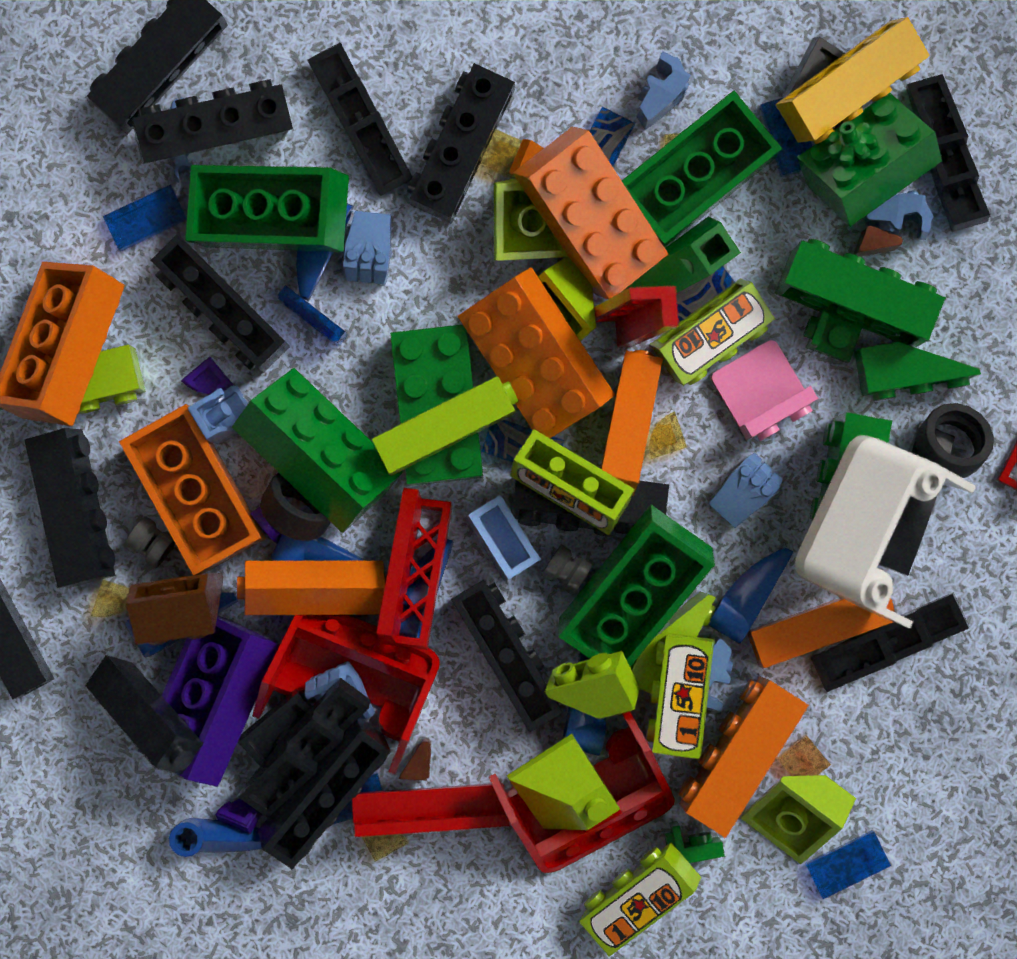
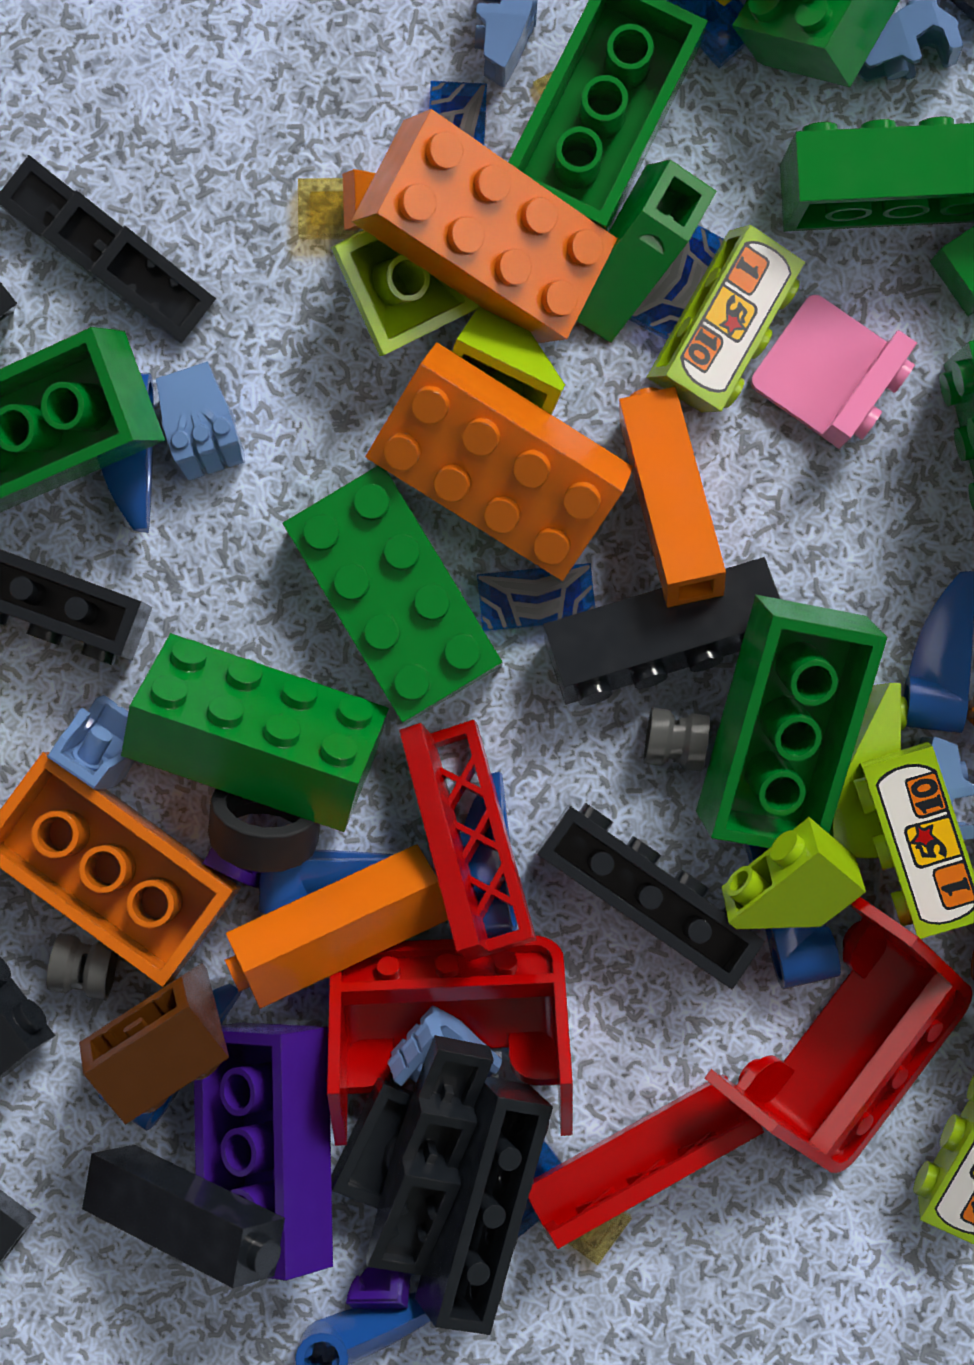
camera: 20 degrees left, 0 degrees up
(110, 599) = (61, 1072): clear yellow tile -> none
(207, 378) = (57, 703): dark purple tile -> none
(312, 316) = (163, 550): clear blue tile -> none
(419, 765) = (596, 1103): copper slope -> none
(445, 425) = (419, 614): lime brick -> none
(462, 142) = (260, 218): black brick -> none
(502, 538) = (569, 737): light blue brick -> none
(564, 788) = (815, 1044): lime slope -> none
(571, 482) = (631, 613): lime brick -> none
(640, 313) = (620, 334): red fence -> none
(666, 437) = (728, 494): clear yellow tile -> none
(745, 490) = (871, 517): medium blue hand -> none
(832, 336) = (890, 252): green bracket -> none
(875, 241) = (893, 92): copper slope -> none

